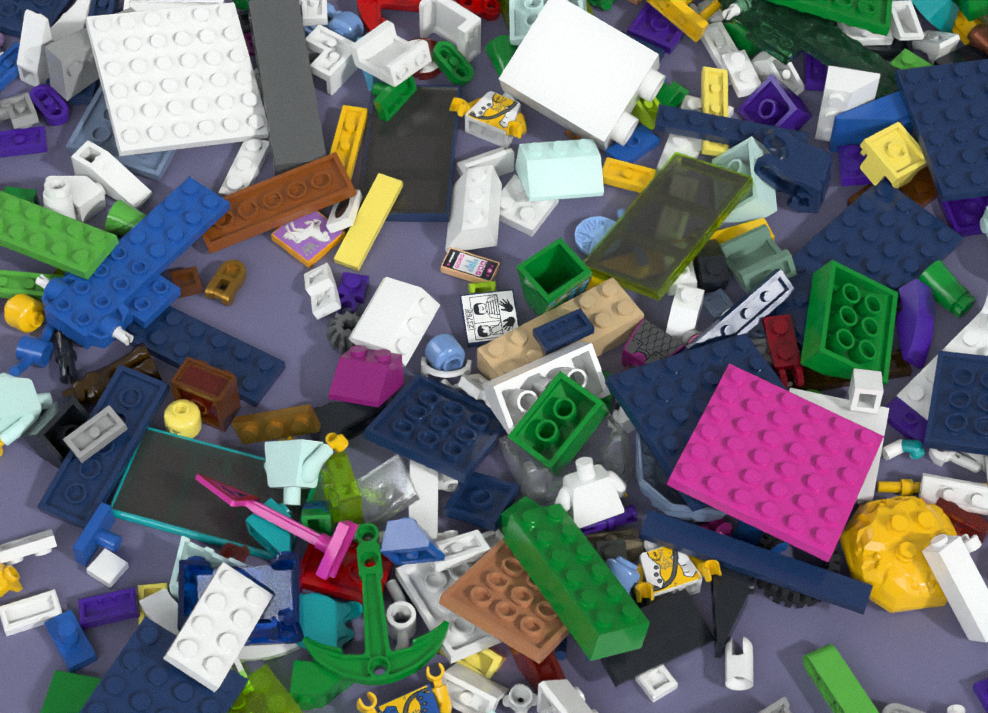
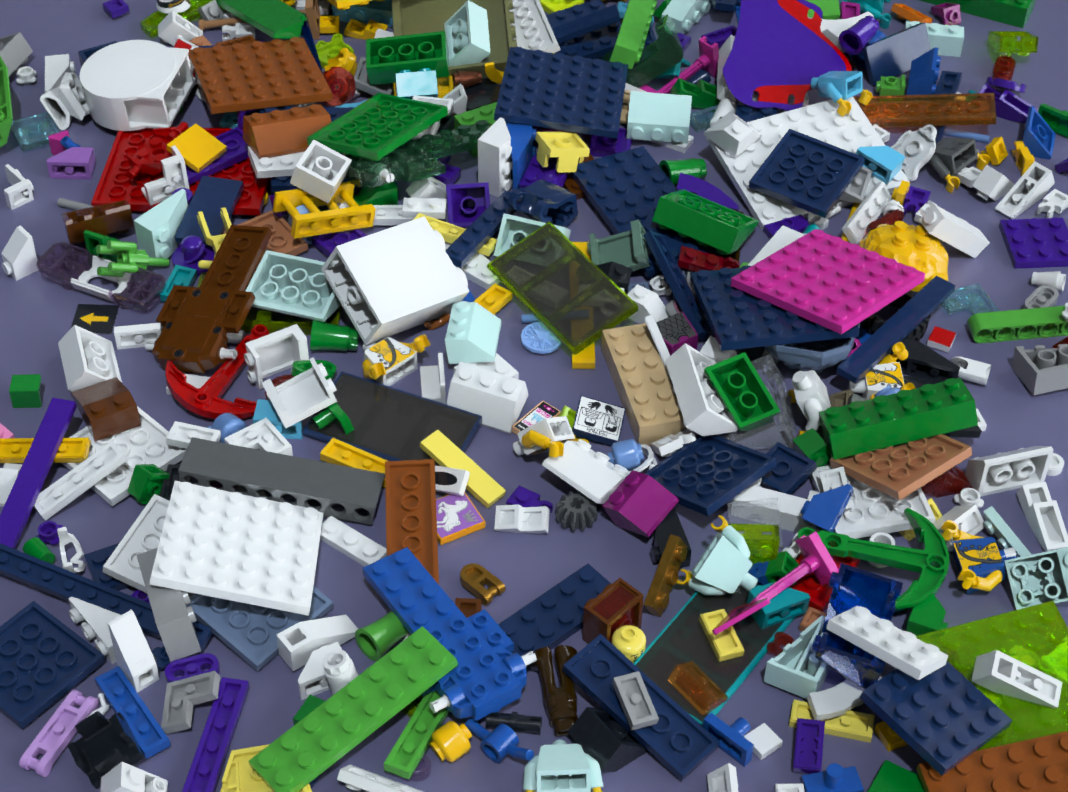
camera: 70 degrees left, 10 degrees down
(149, 492) = (697, 687): none -> clear orange slope
(212, 506) = (724, 644): none -> light yellow tile
(431, 273) = (544, 436): none -> torso
(552, 277) = (602, 356): green slope -> none
(563, 331) = (653, 365): dark blue plate -> none
(617, 333) = (658, 339): none -> white tile
(787, 625) = (941, 339): none -> red tile
(865, 391) = (769, 227): white brick -> none
(873, 646) = (970, 298): none -> clear light blue plate

